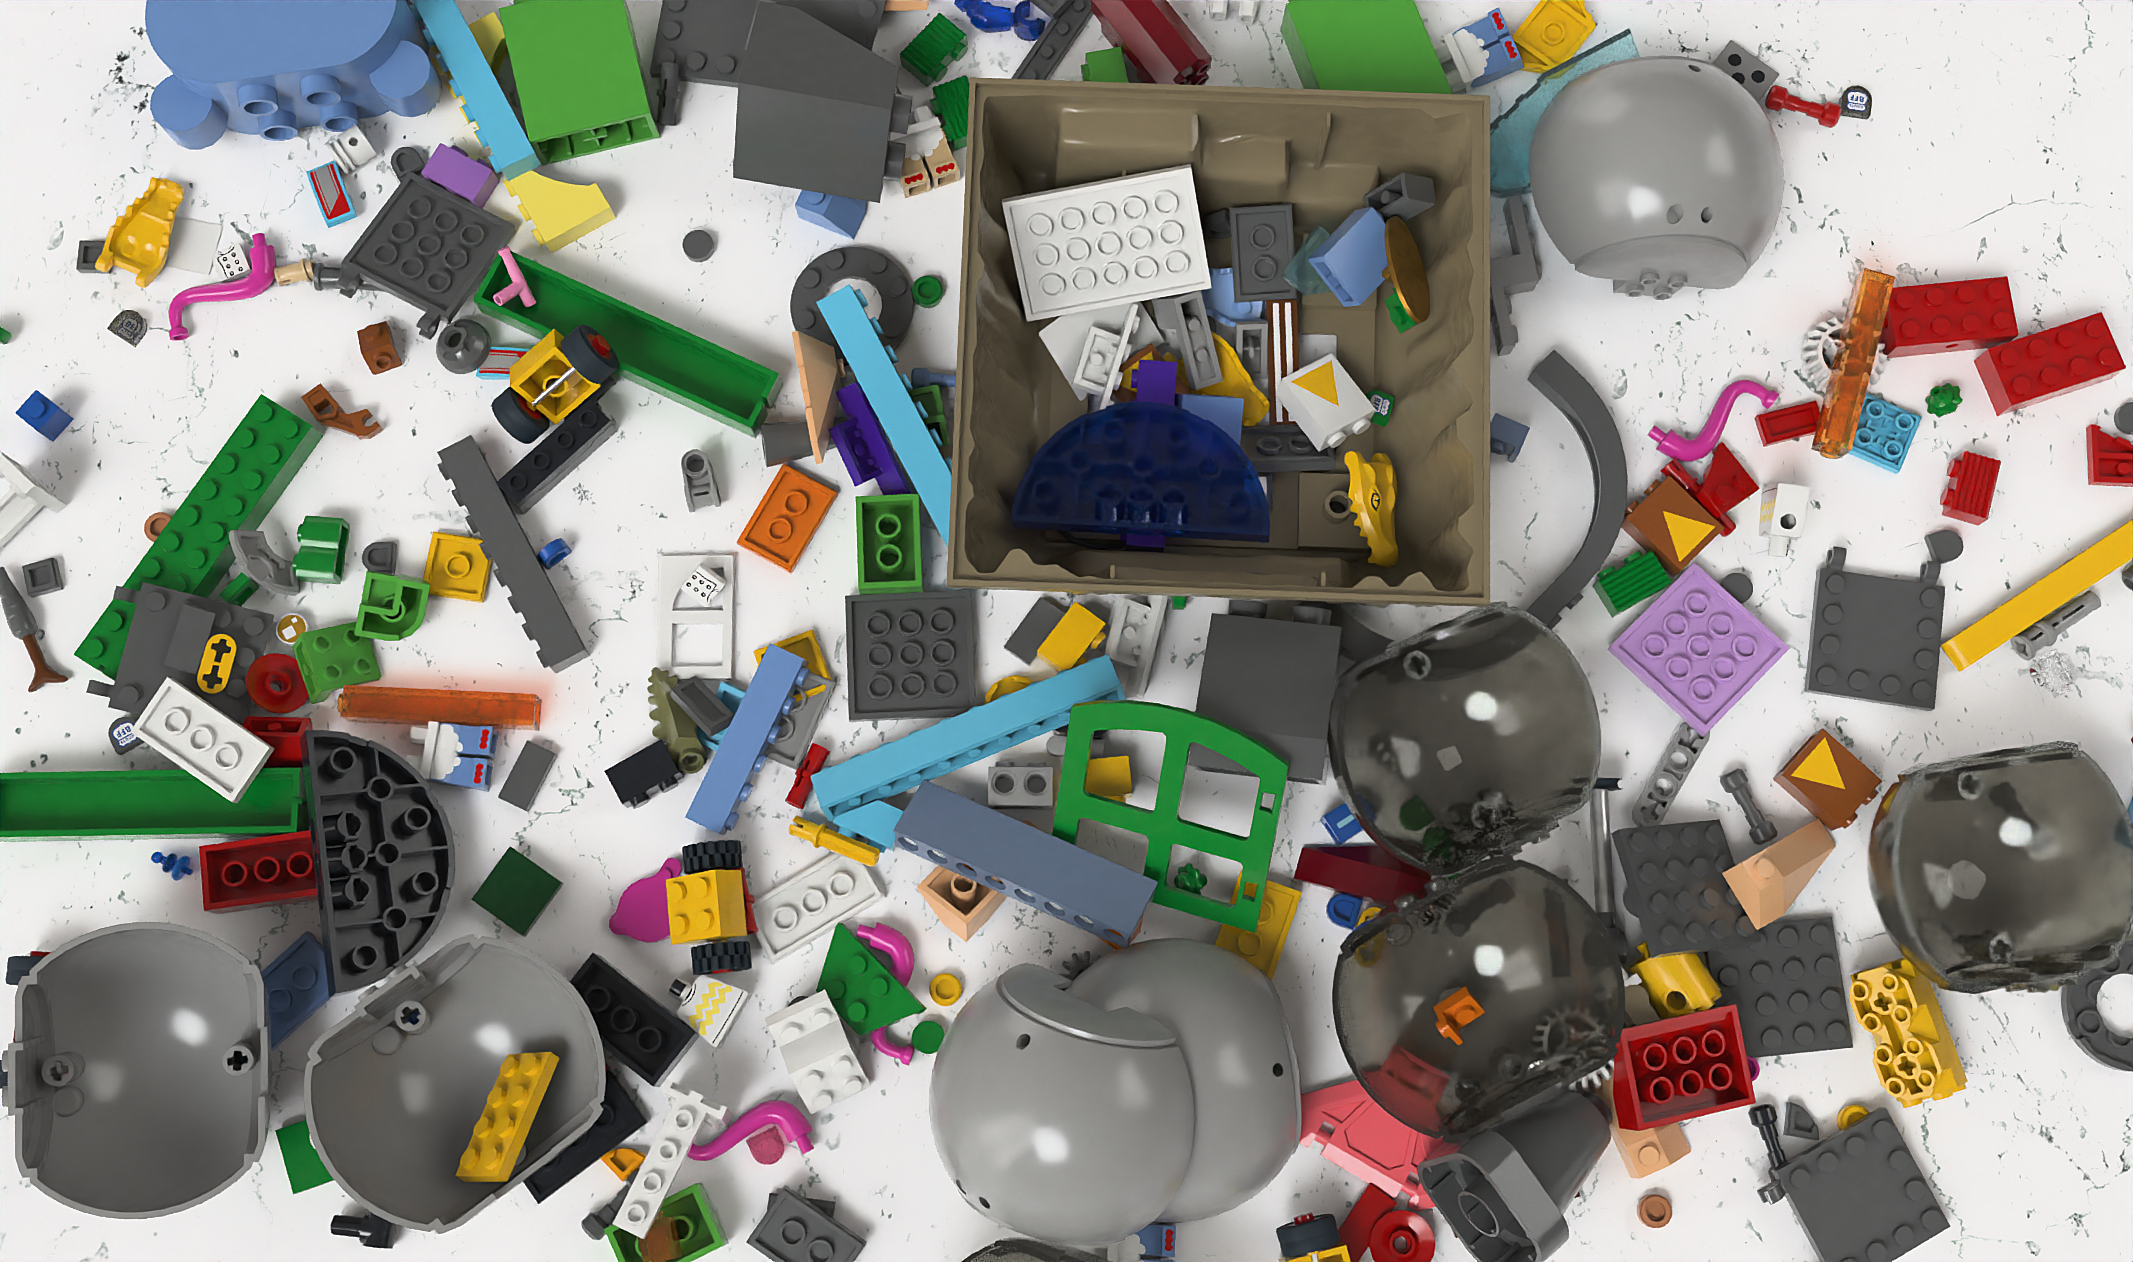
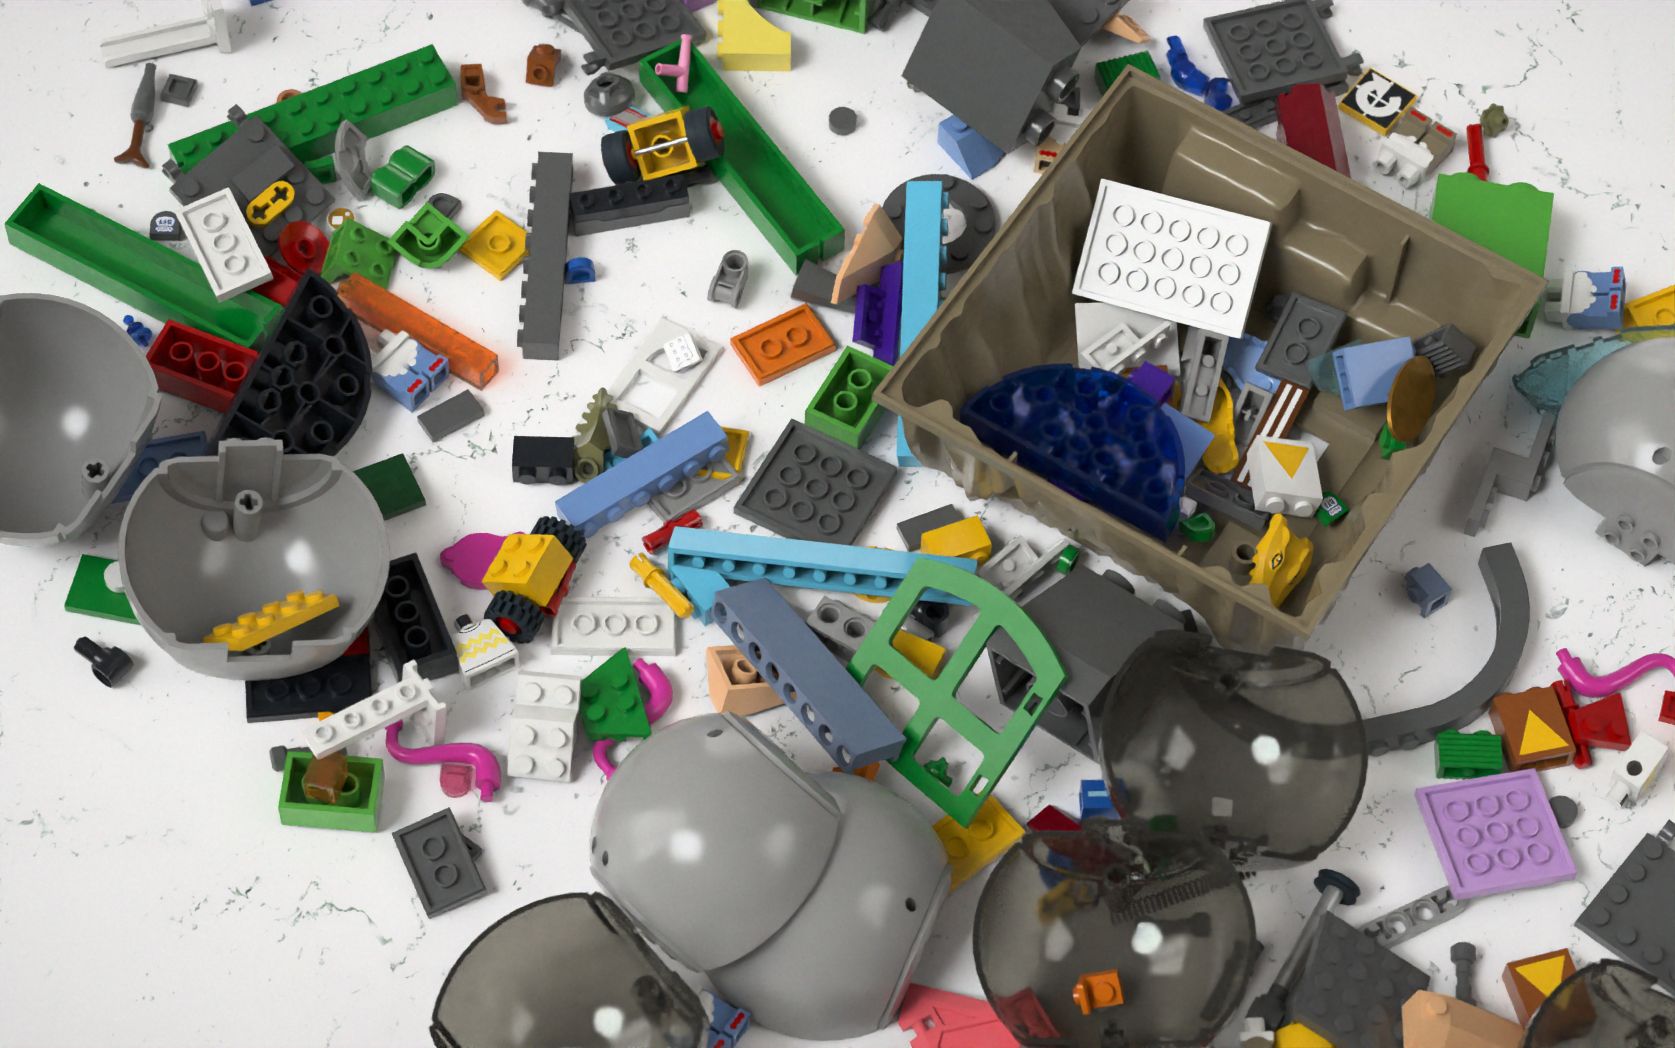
camera: 30 degrees right, 20 degrees down
(1282, 500) = (1198, 528): none -> green tile

